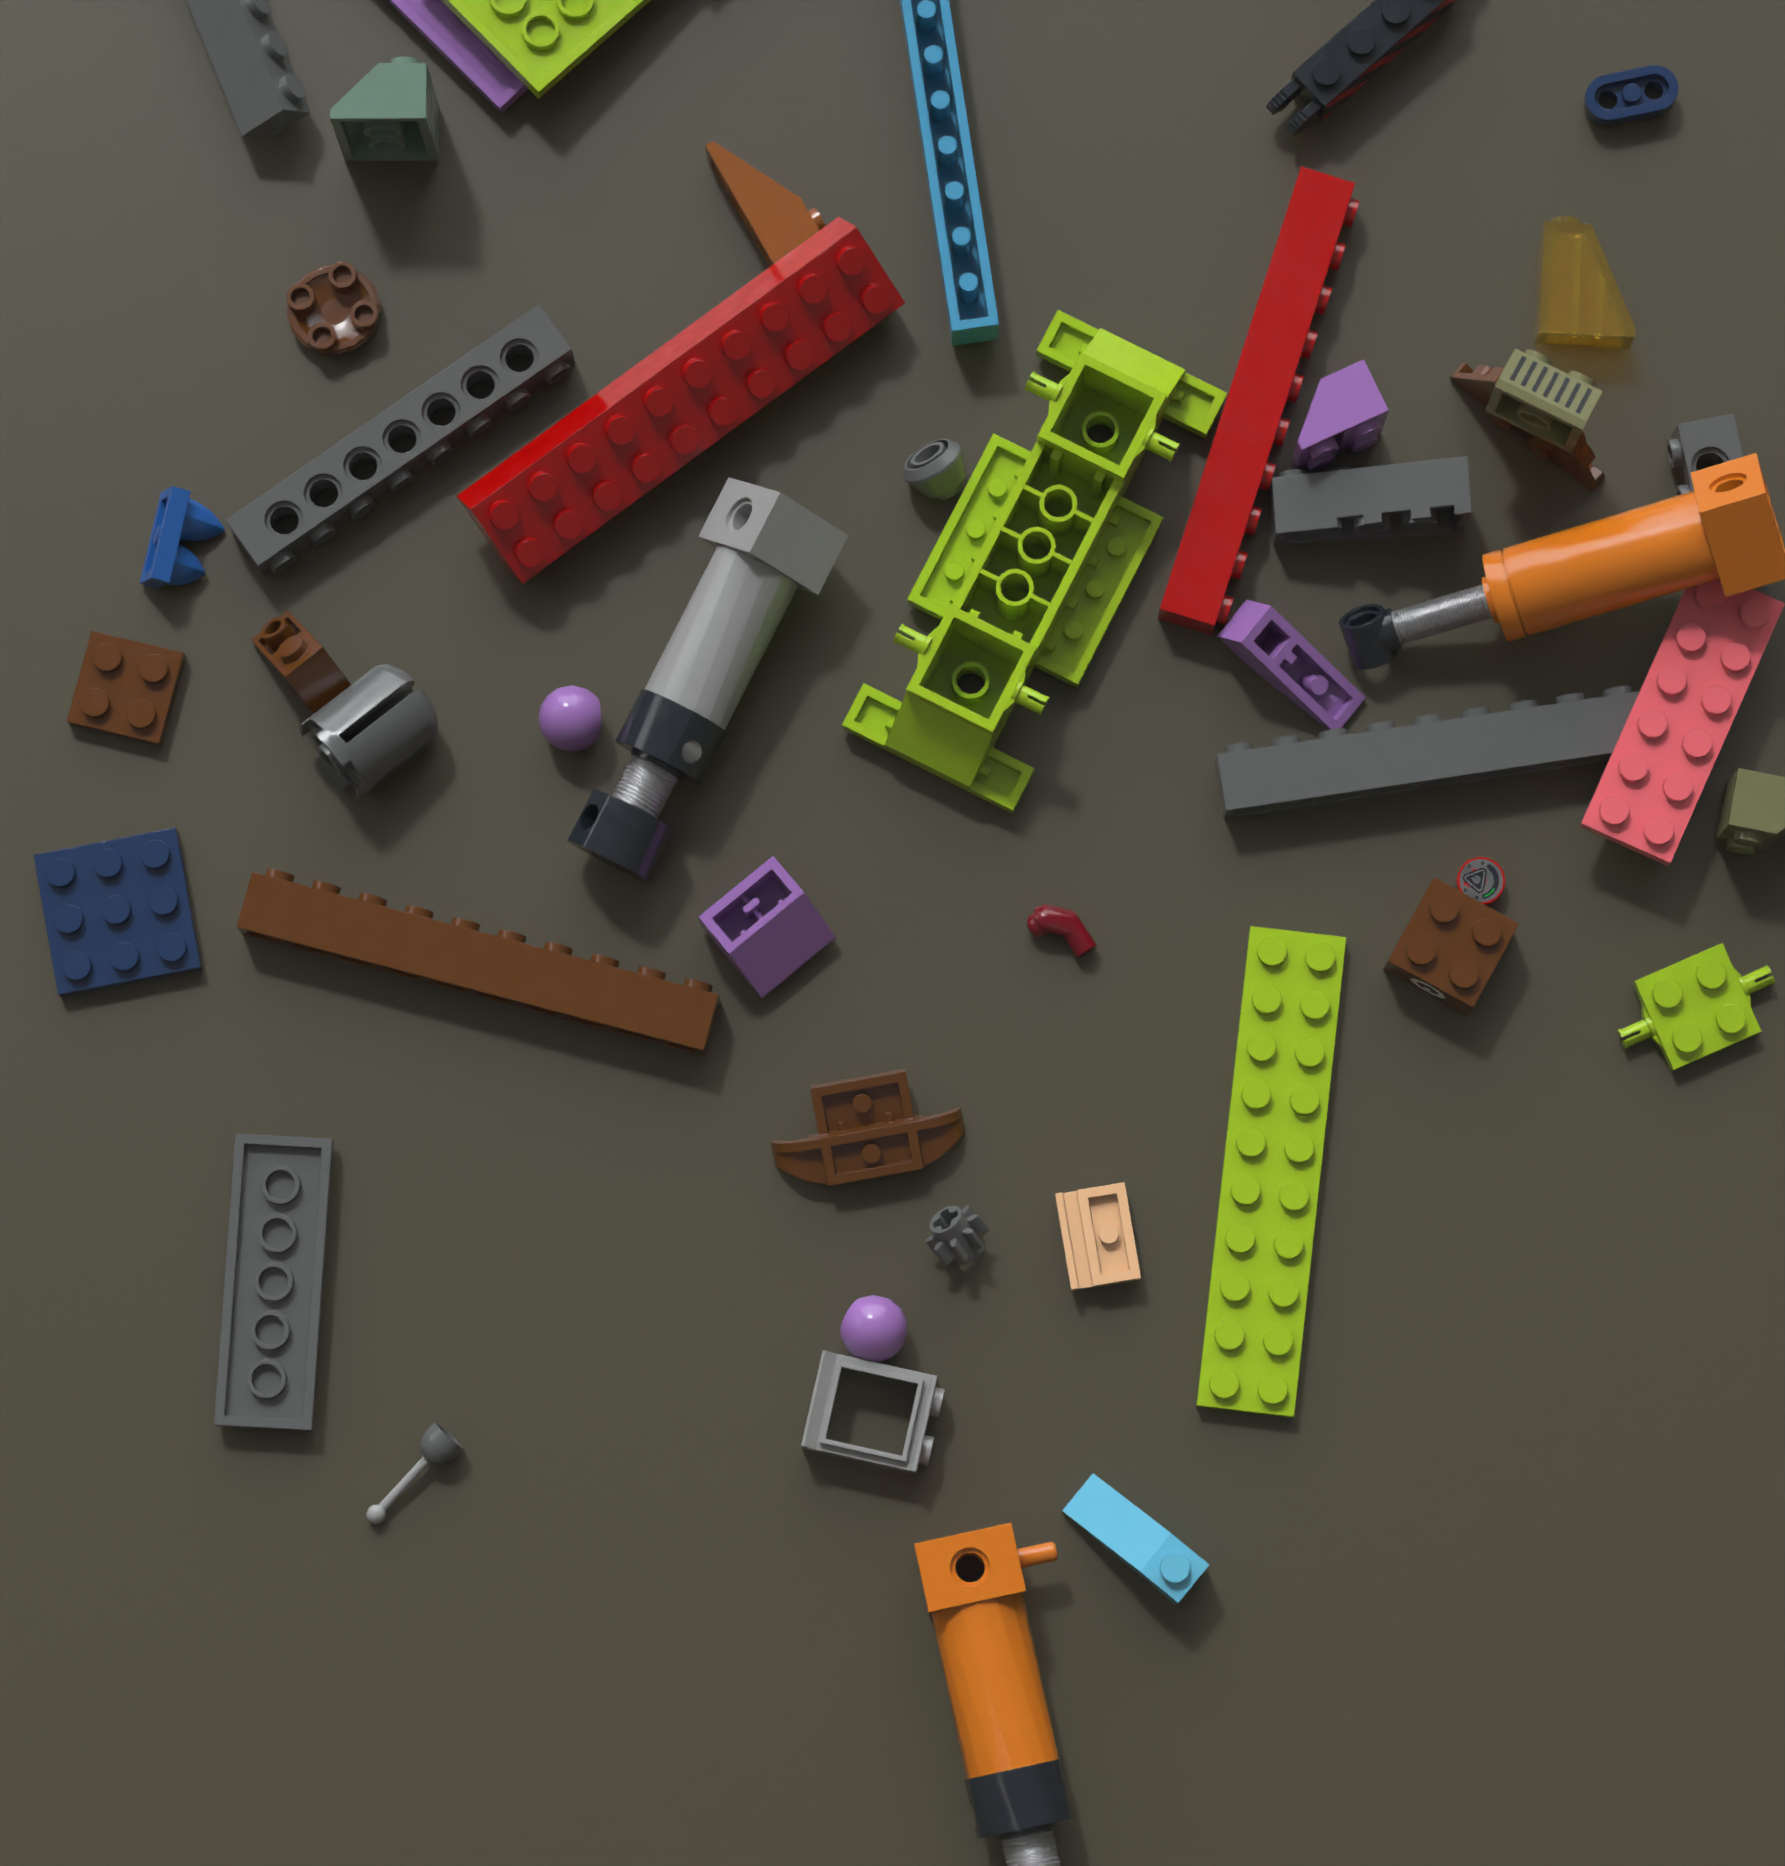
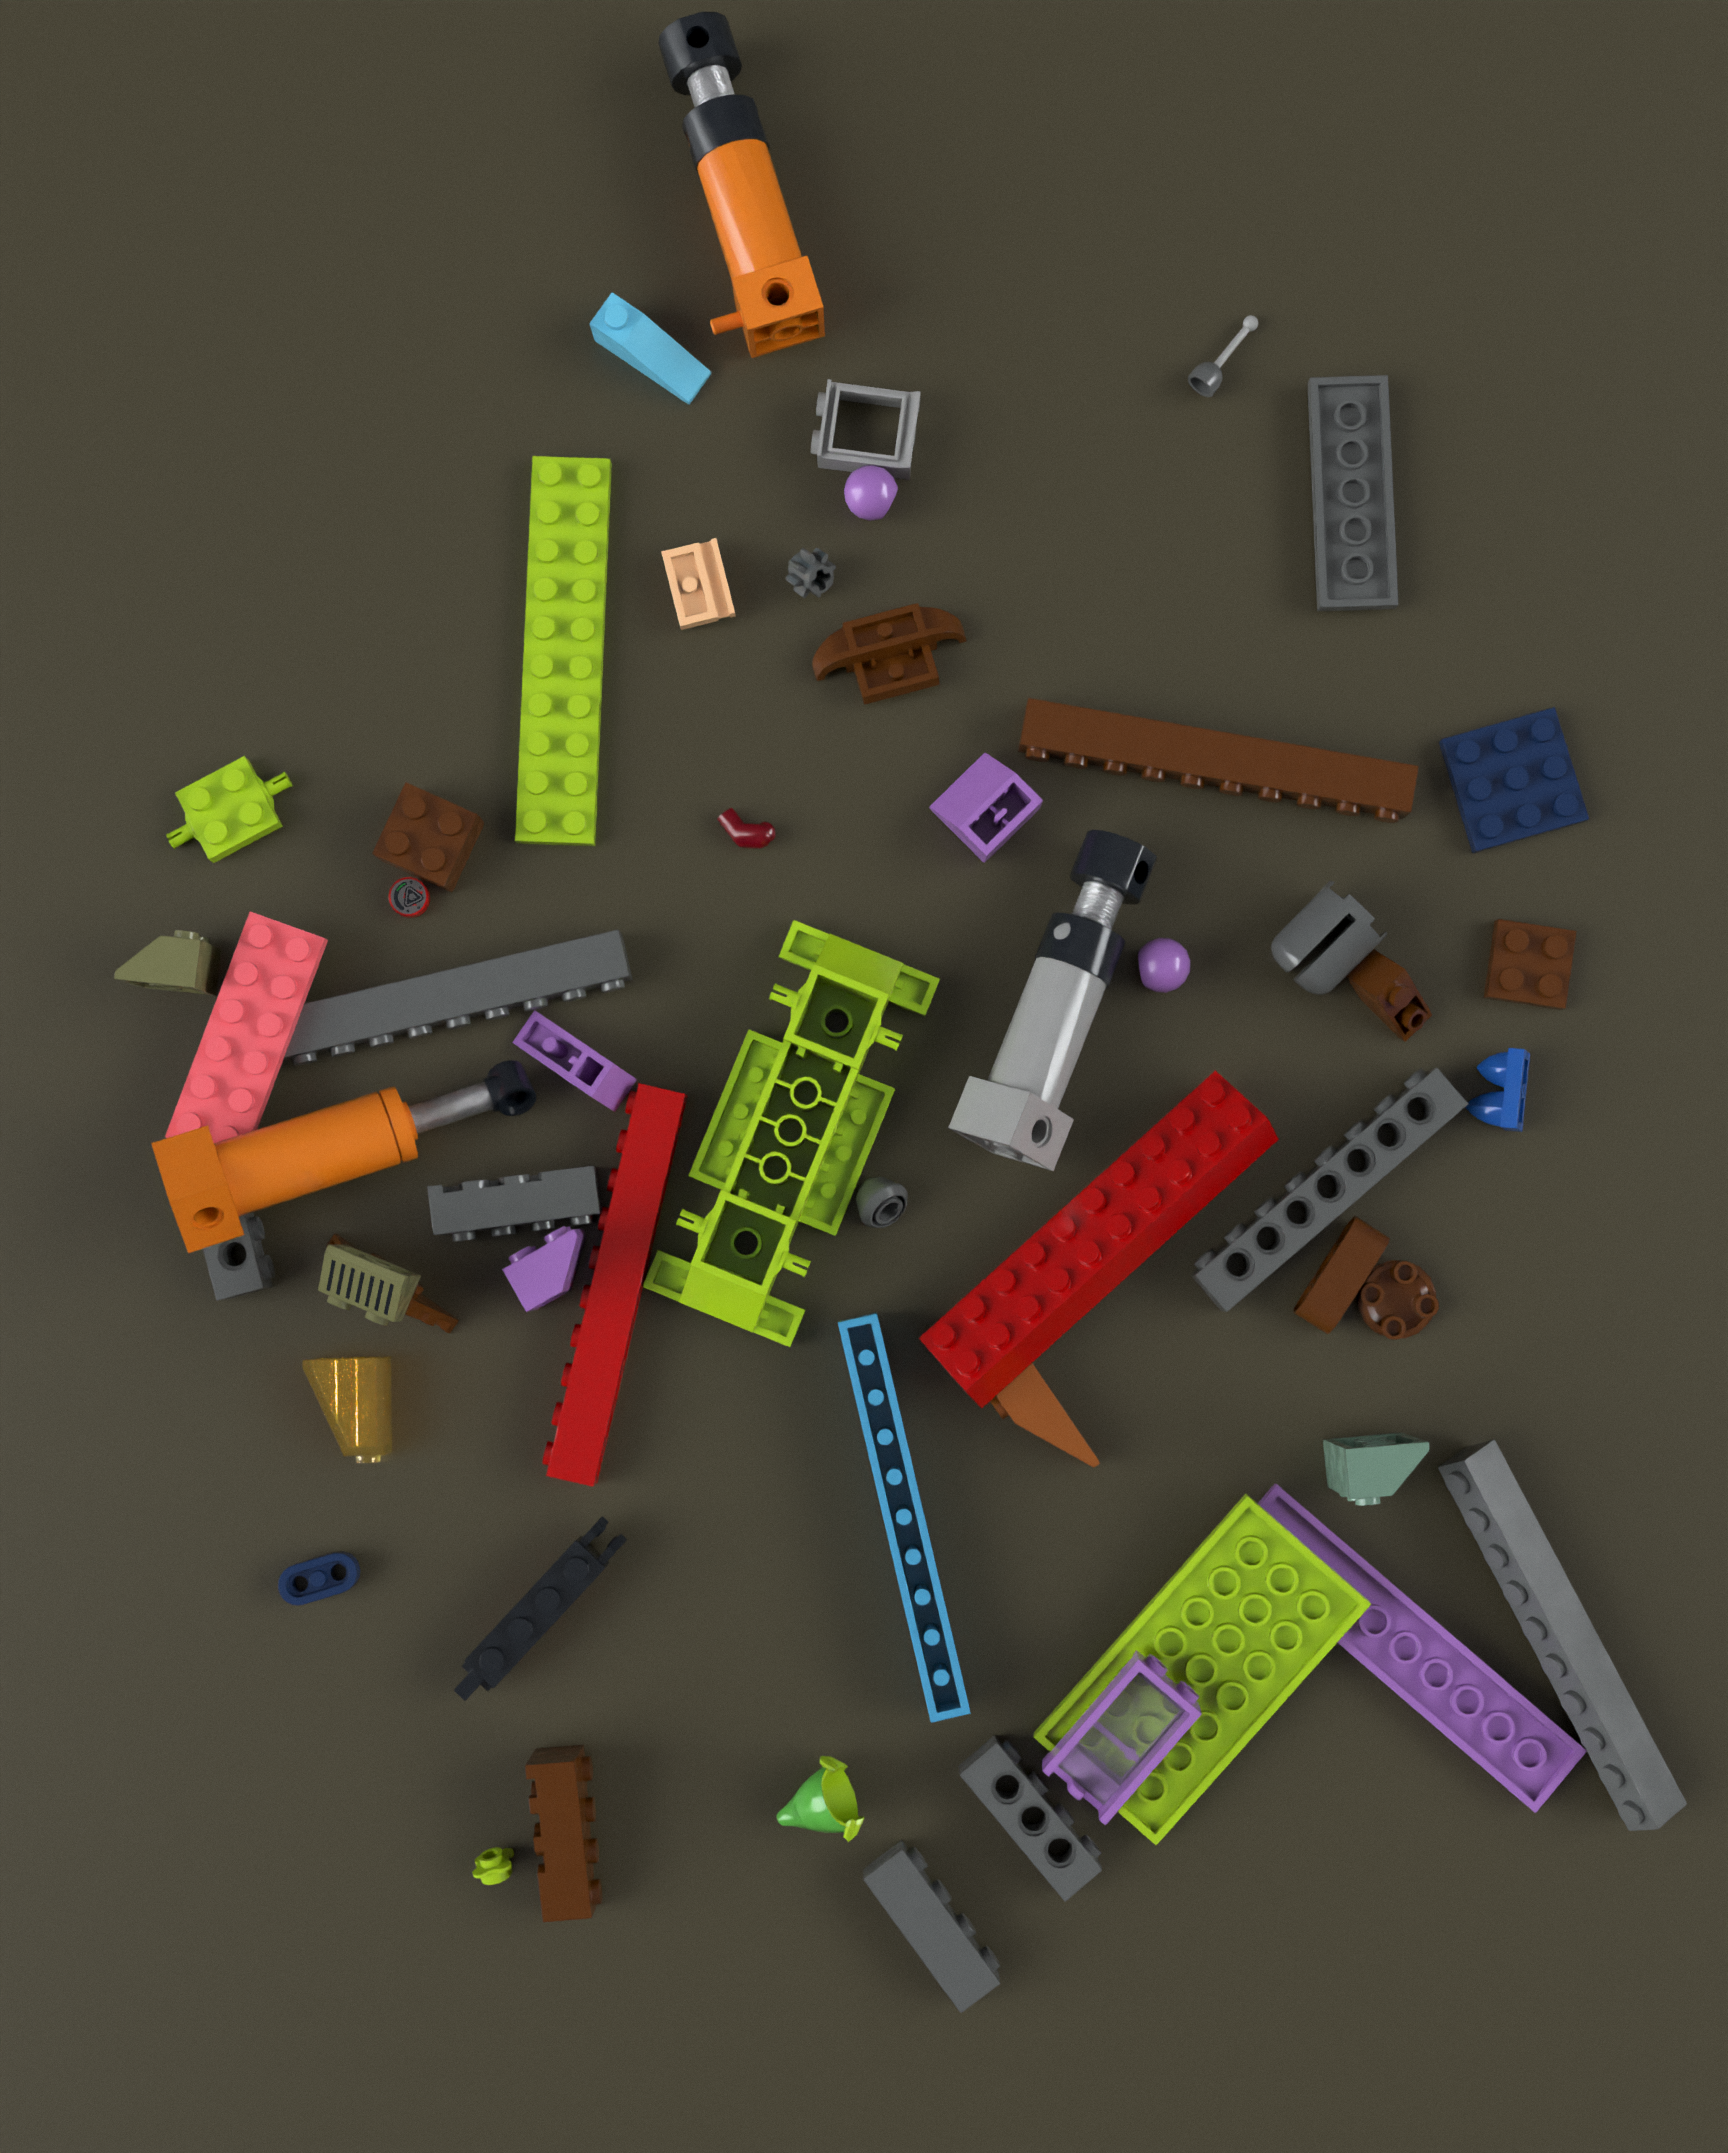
camera: 175 degrees right, 5 degrees up
(397, 341) = (1341, 1275): none -> reddish brown beam

